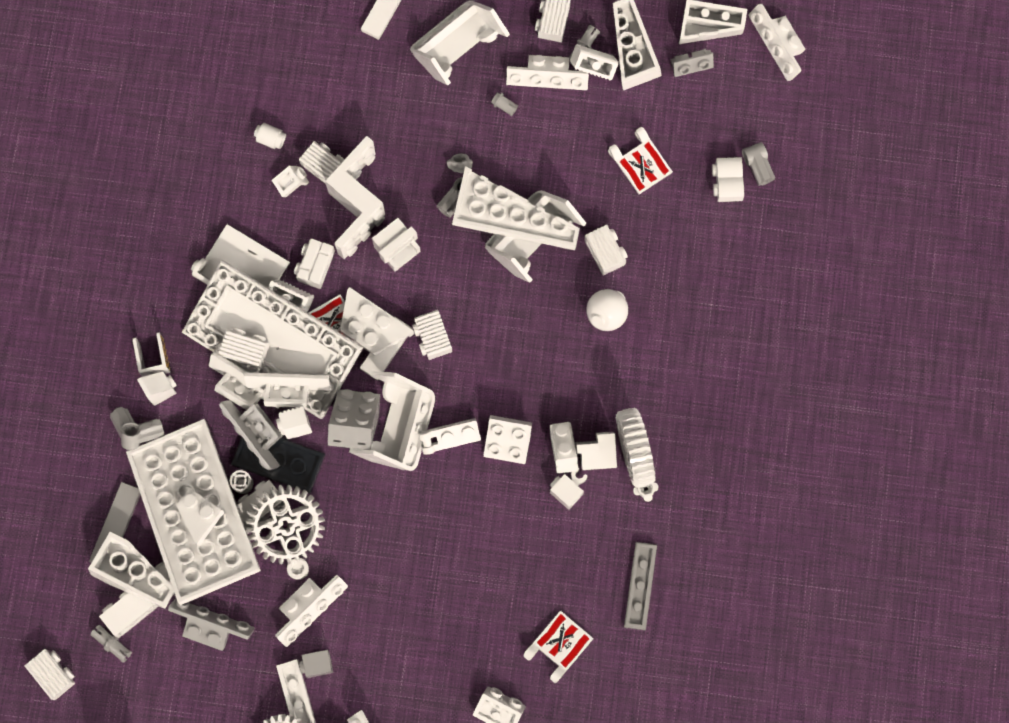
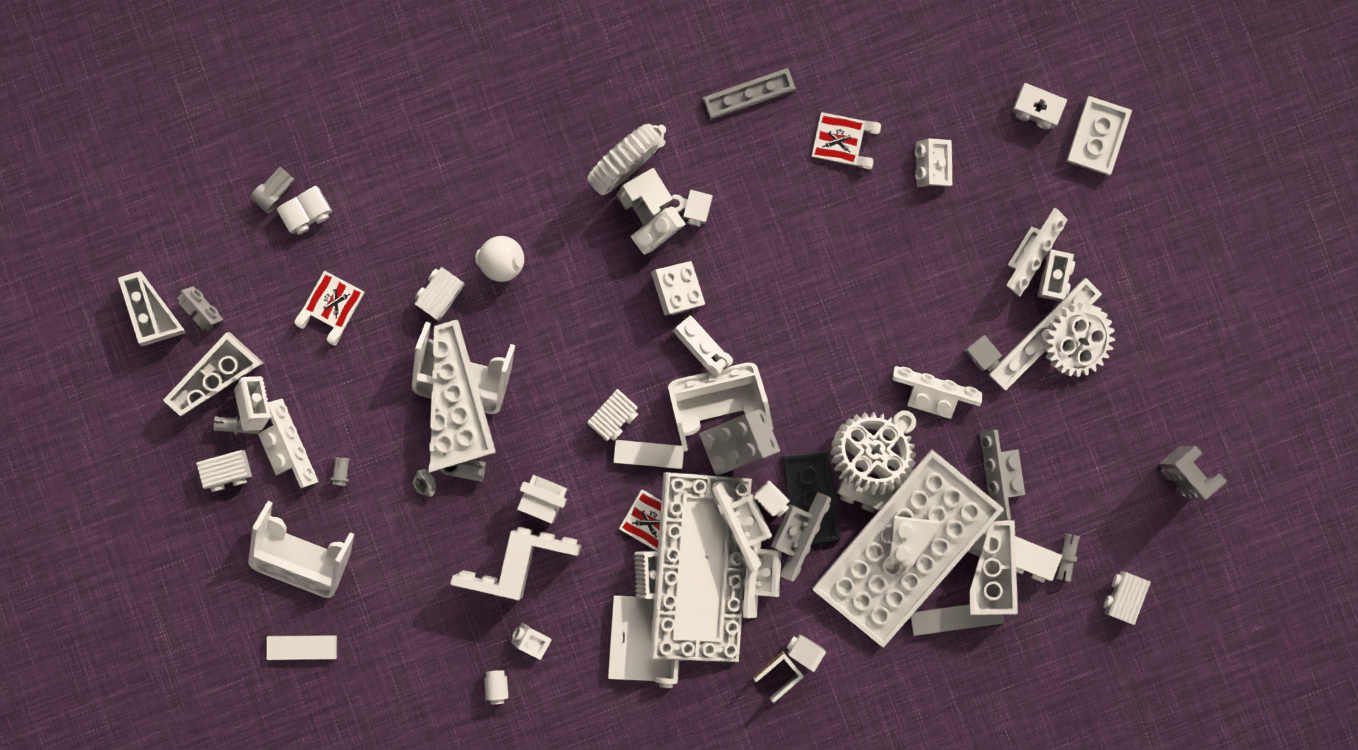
camera: 120 degrees left, 10 degrees up
(132, 433) = (860, 659): light grey piece -> none
(244, 348) = (726, 587): white brick -> none
(244, 485) = (852, 520): white wheel -> none
(315, 263) = (602, 569): white brick -> none
(320, 161) = (496, 618): white brick -> none
(370, 324) = (635, 480): white wing -> none
(779, 39) = (131, 233): white bracket -> none

